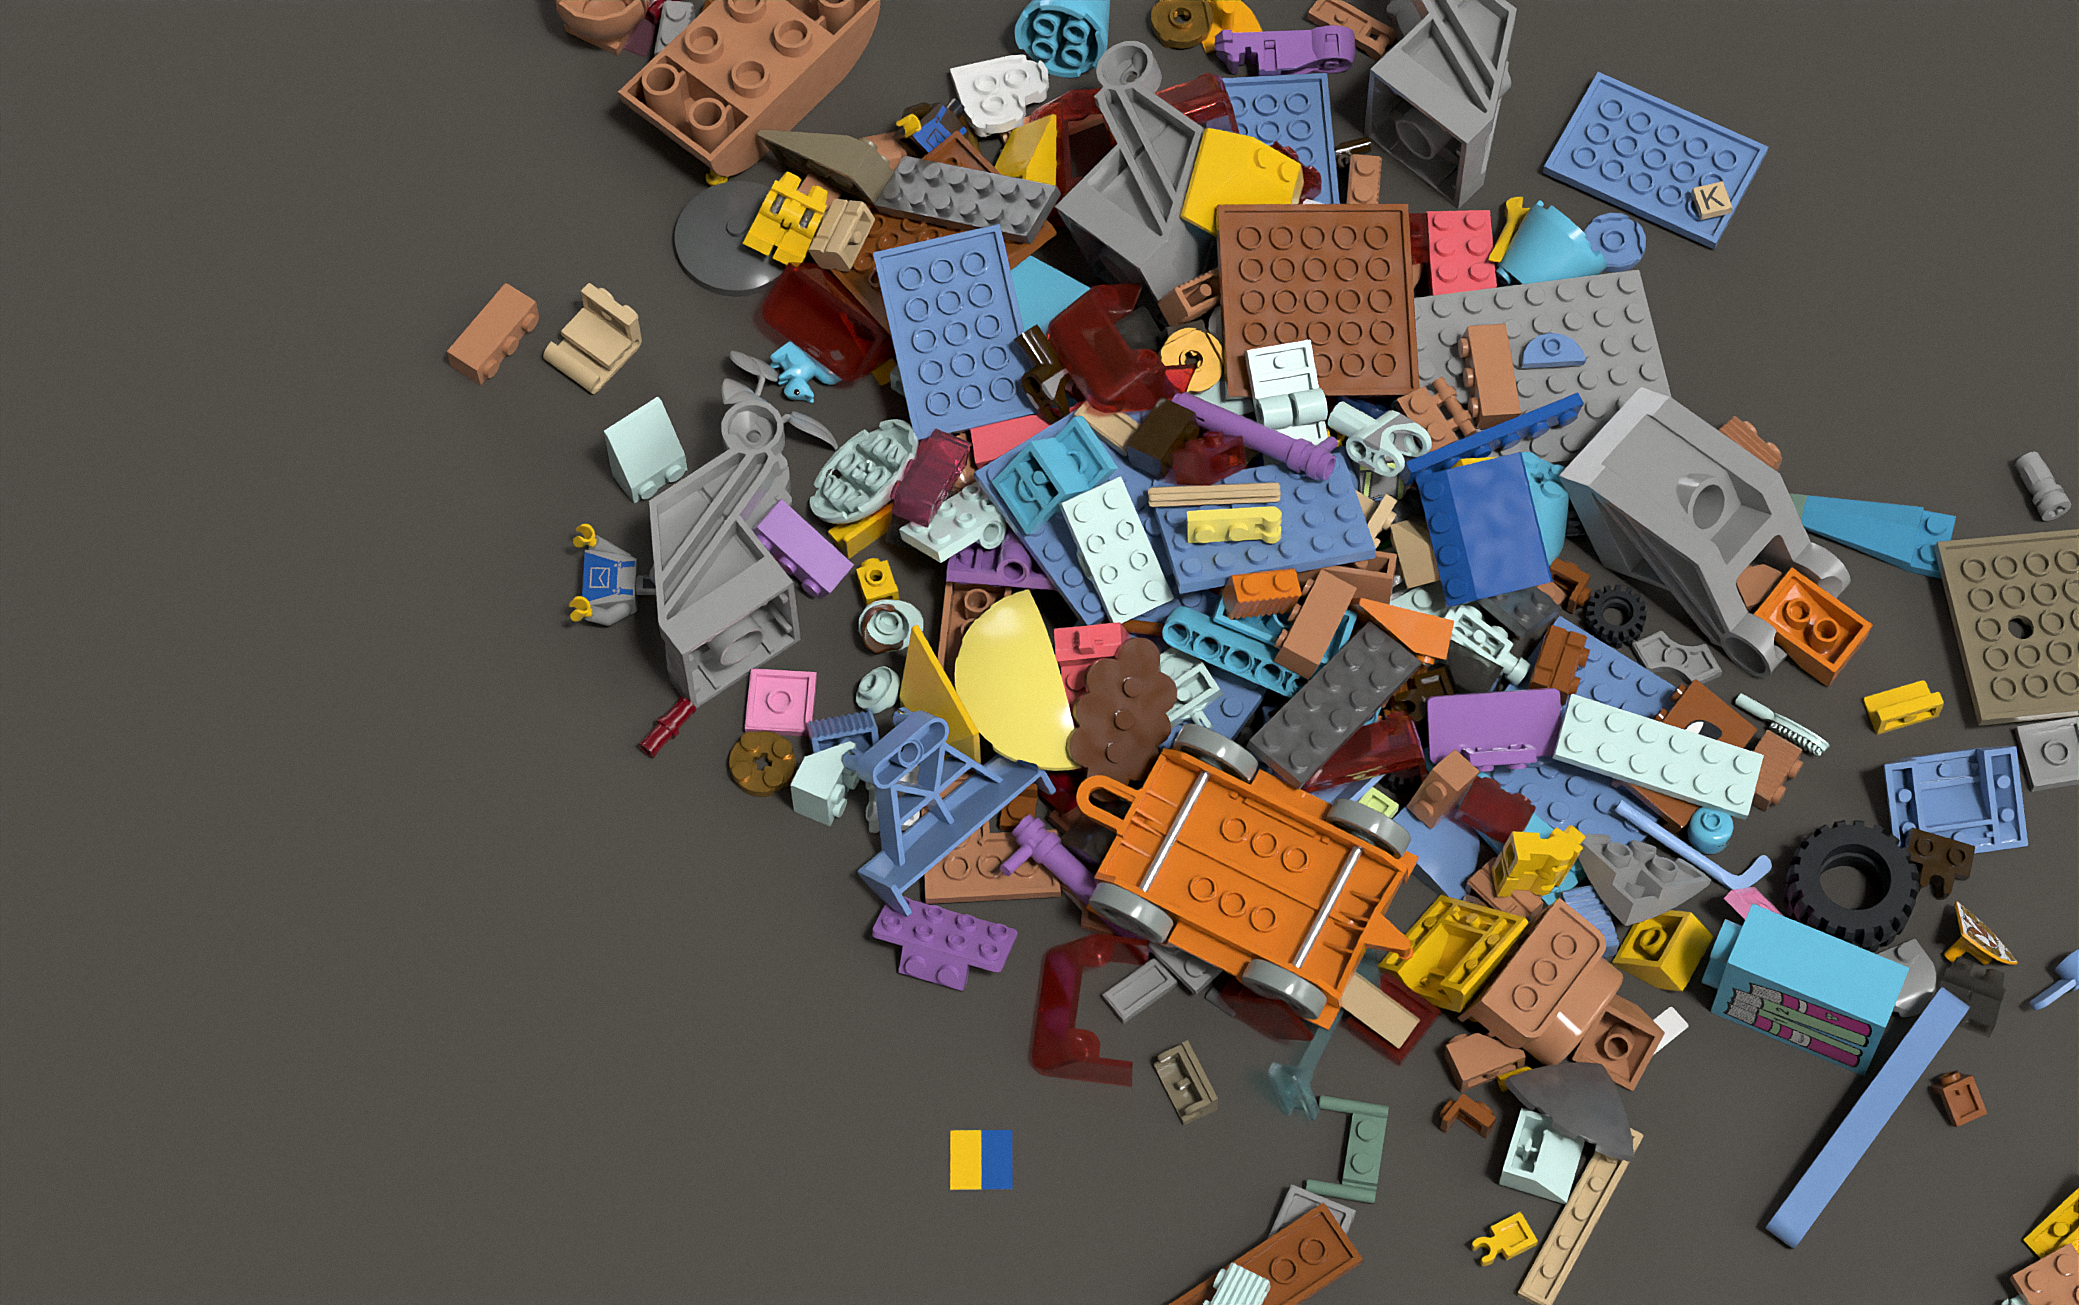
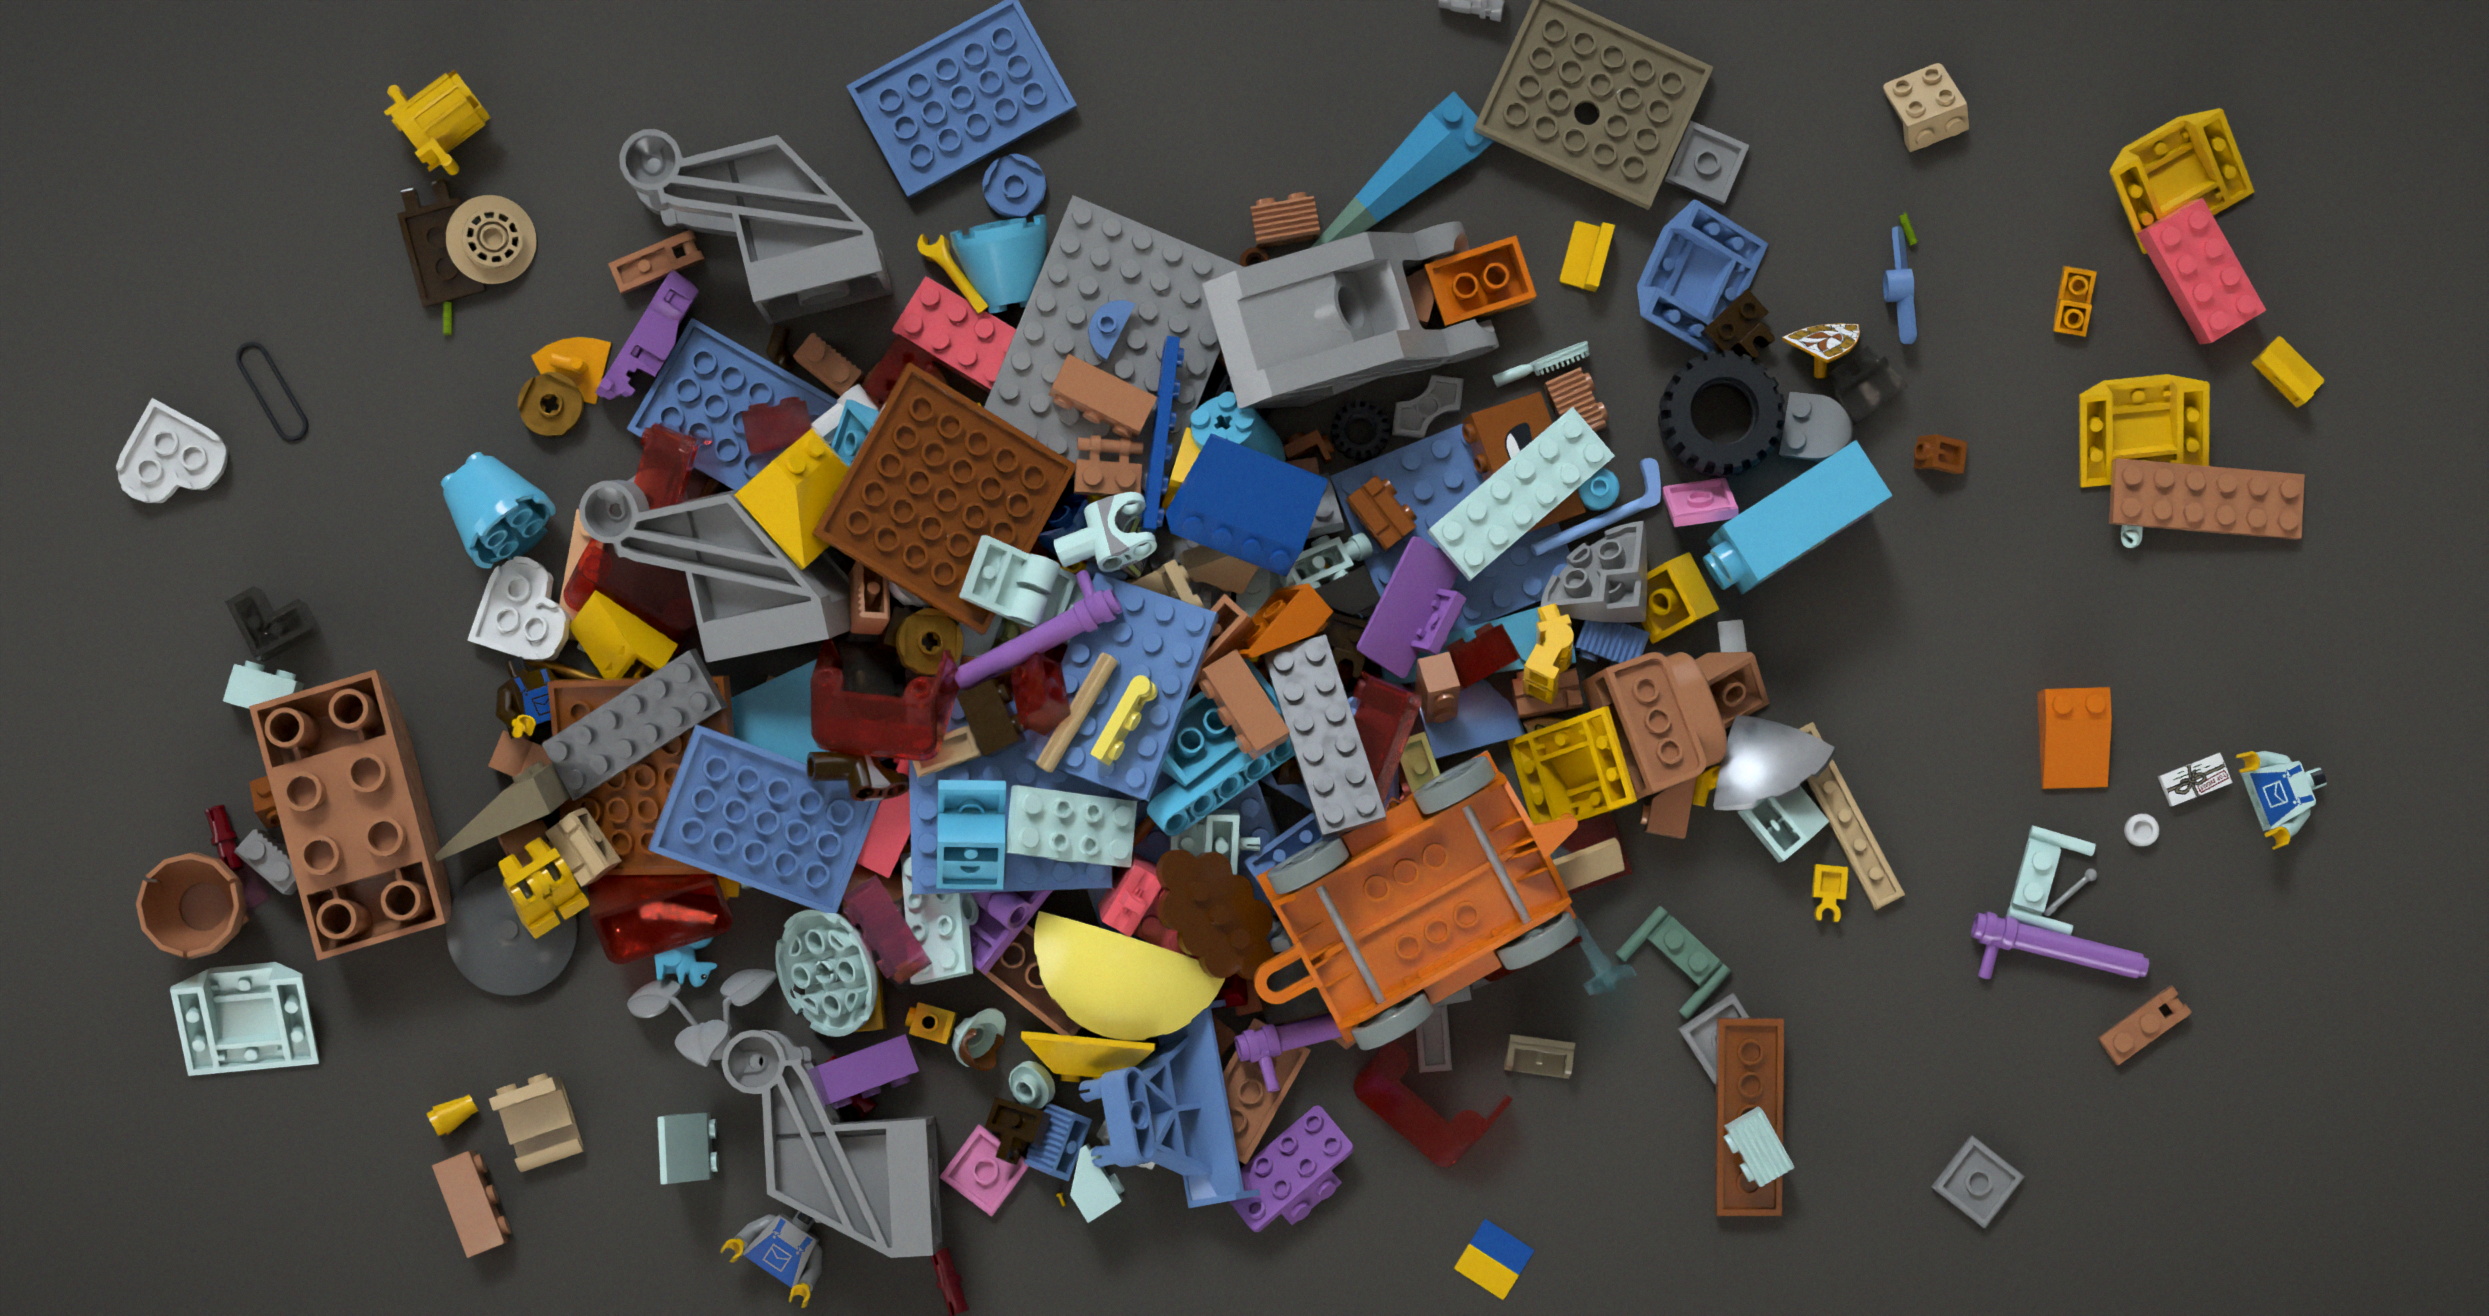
camera: 60 degrees left, 20 degrees up
(532, 89) = (244, 1019): none -> light aqua slope
(556, 279) = (451, 1114): none -> yellow cone
(754, 747) = (1032, 1239): pearl gold plate -> none
(834, 694) = (1016, 1127): none -> dark brown hinge
(1261, 593) = (1192, 733): orange brick -> none
(1473, 1114) = (1714, 842): dark orange bracket -> none
(1711, 200) = (1037, 80): tan tile -> none
(1867, 1118) = (1918, 541): medium blue beam -> none

